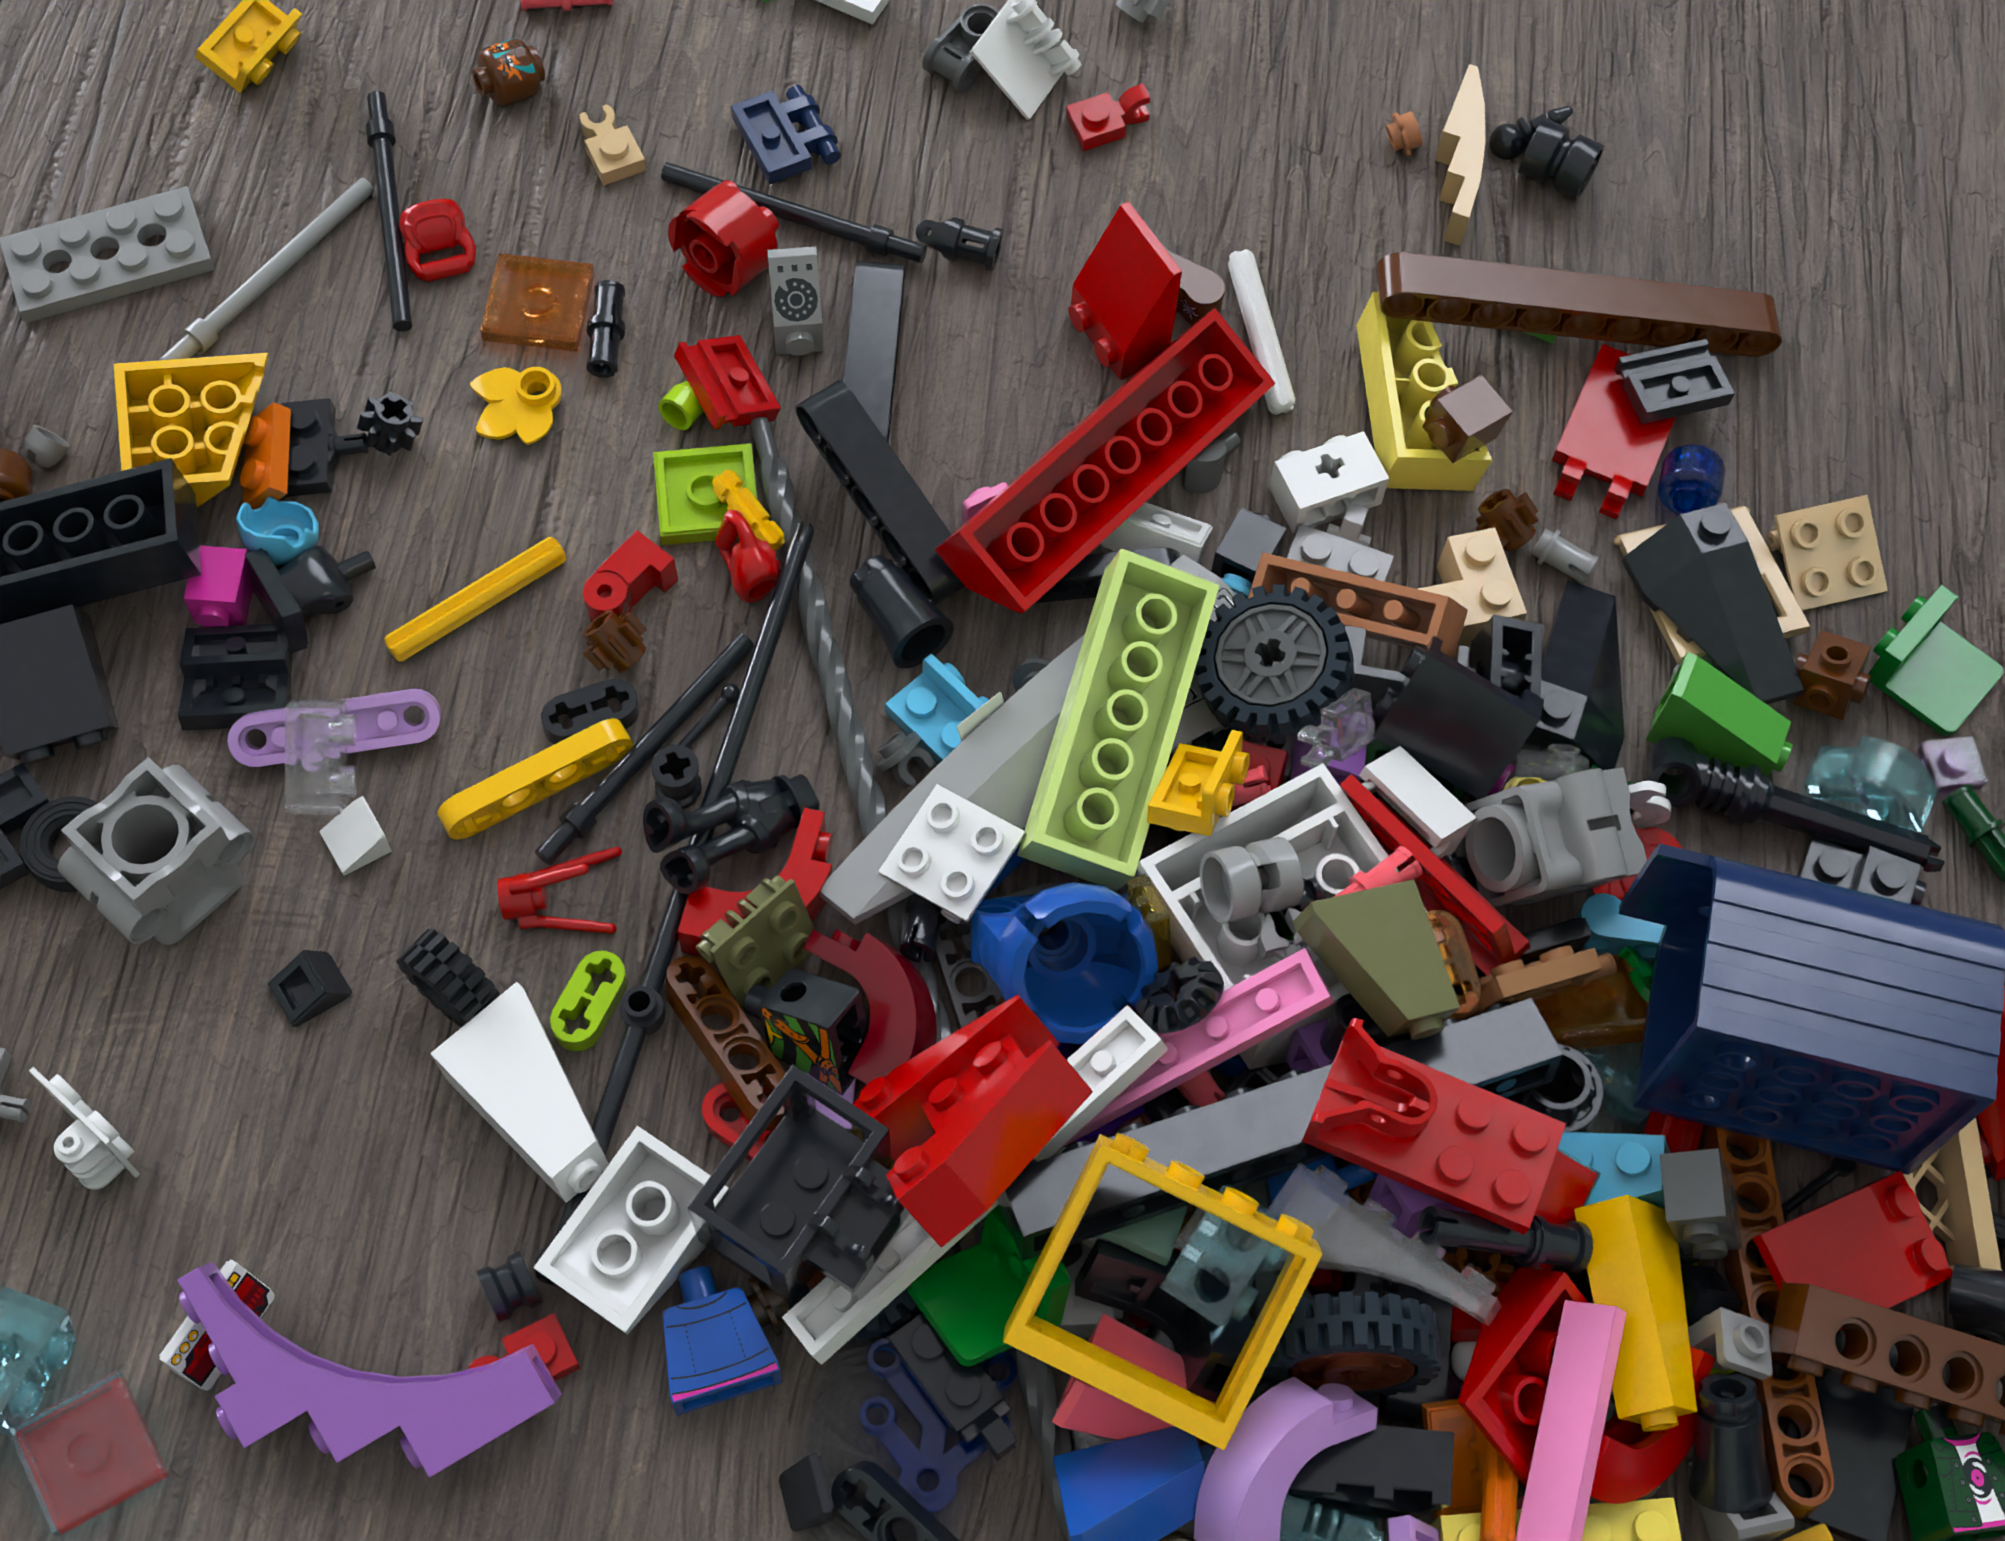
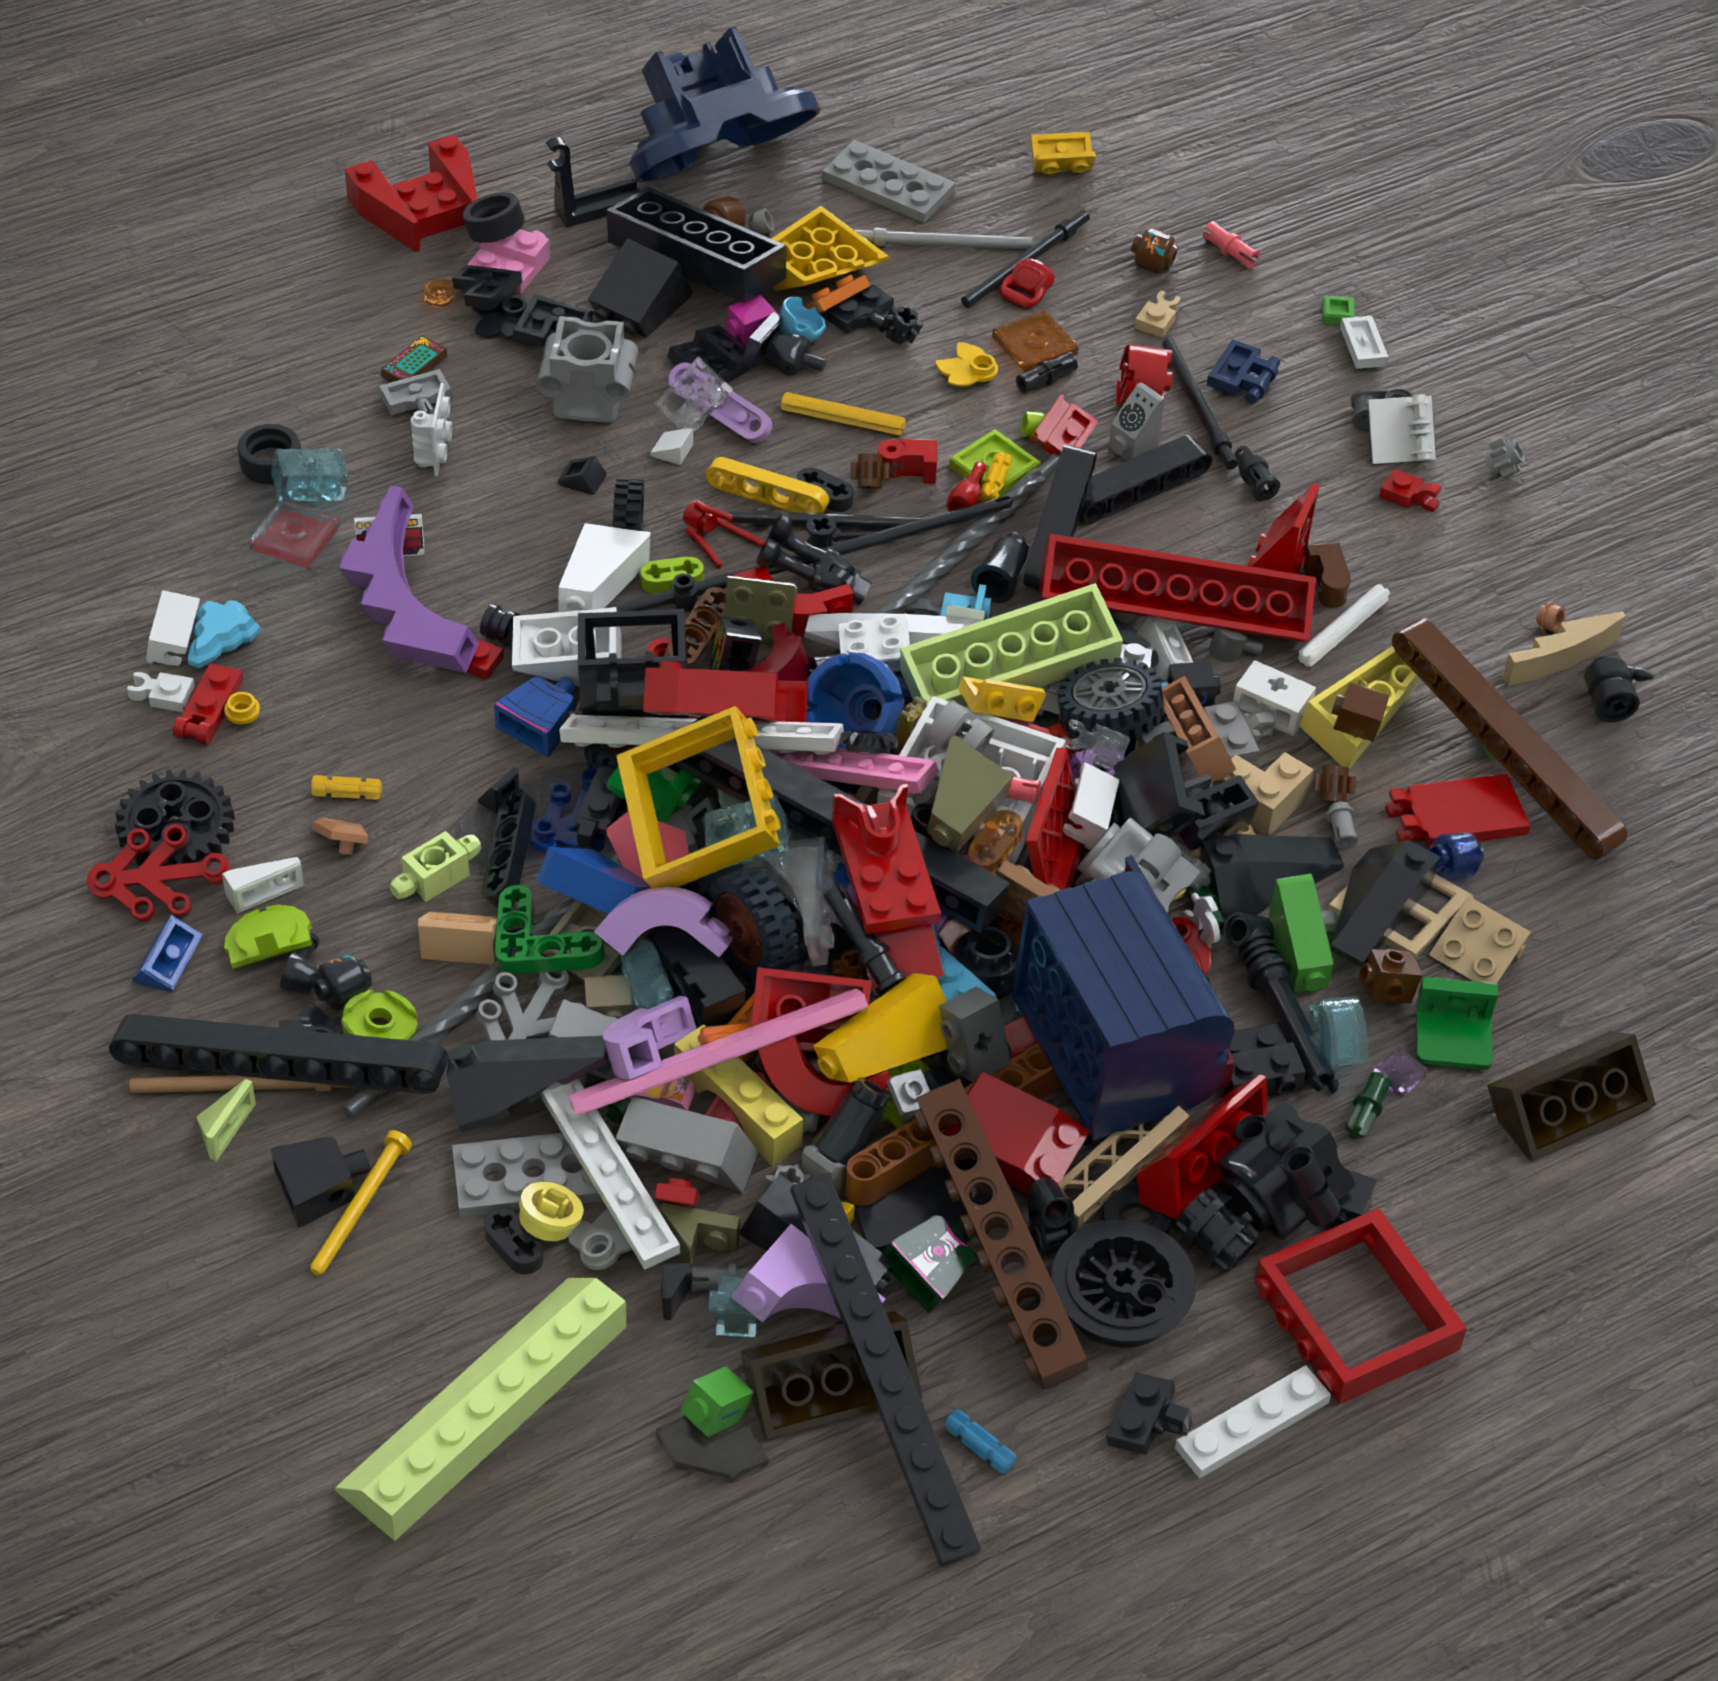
camera: 55 degrees right, 15 degrees down
(1674, 381) = (1510, 809): plate -> none

